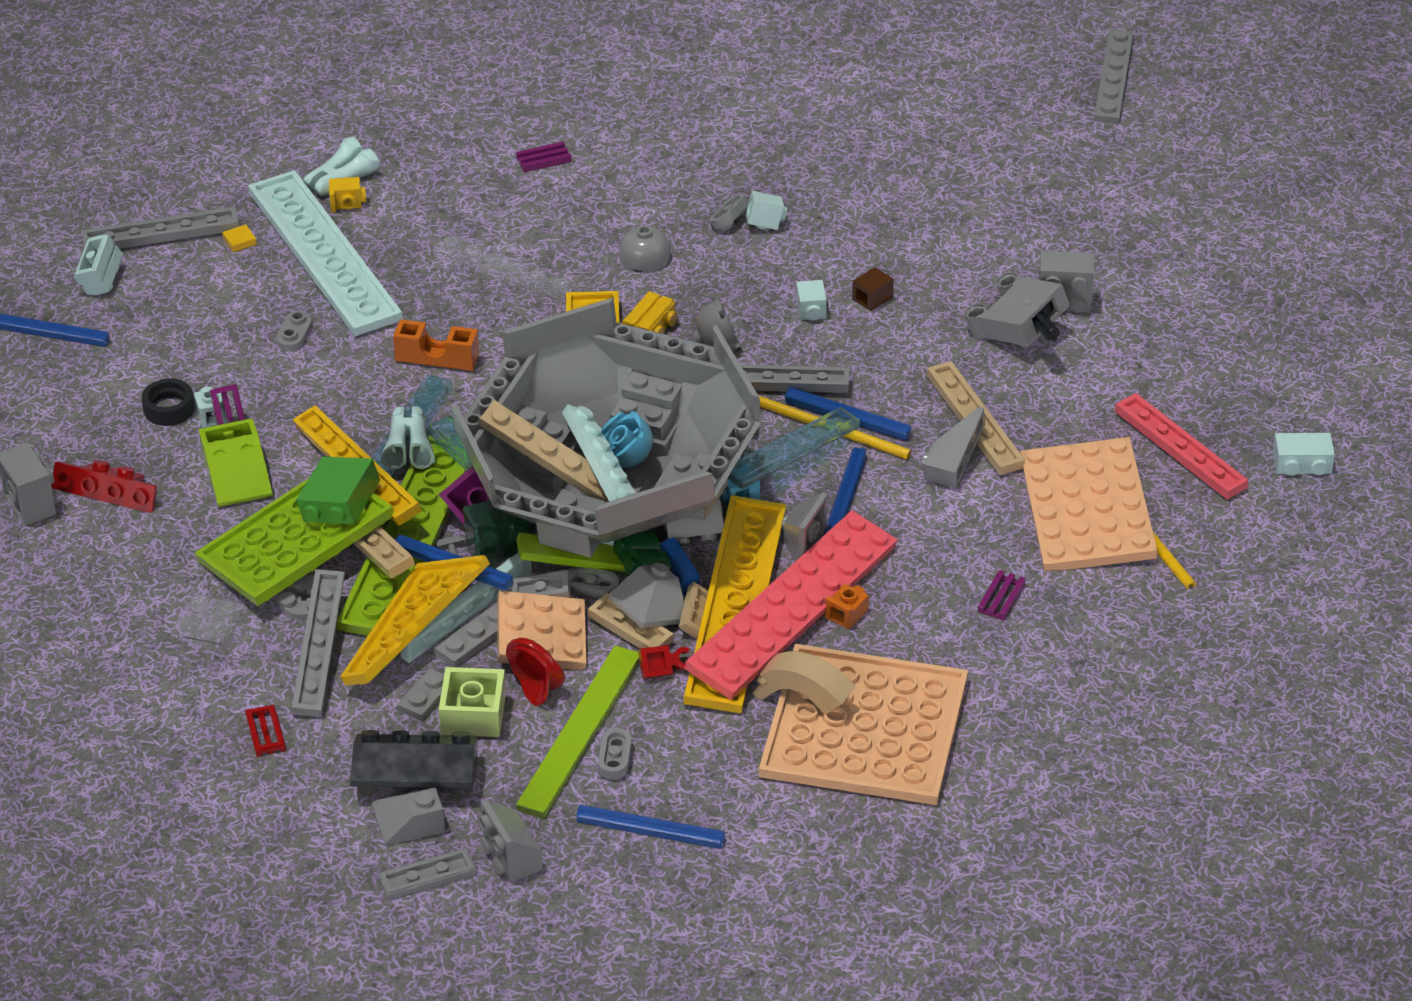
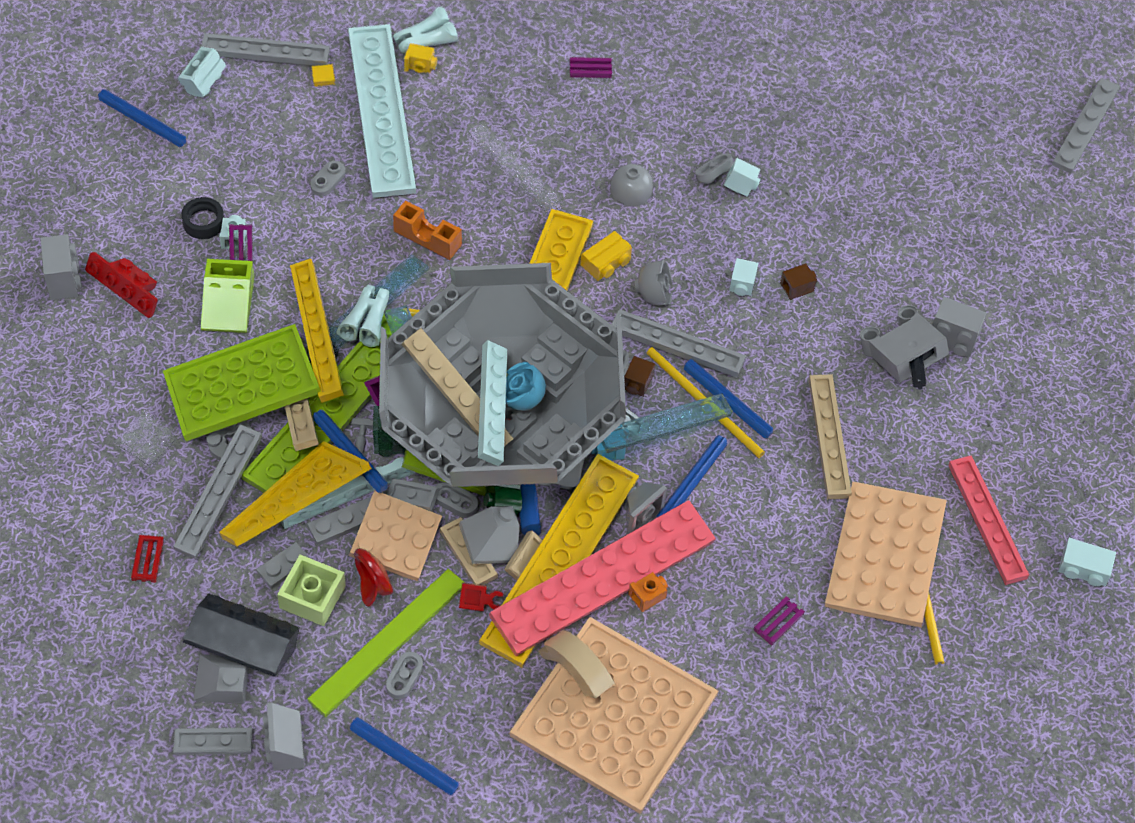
camera: 15 degrees right, 15 degrees up
(338, 490) = (283, 358): bright green brick -> none
(952, 451) = (794, 468): light grey slope -> none

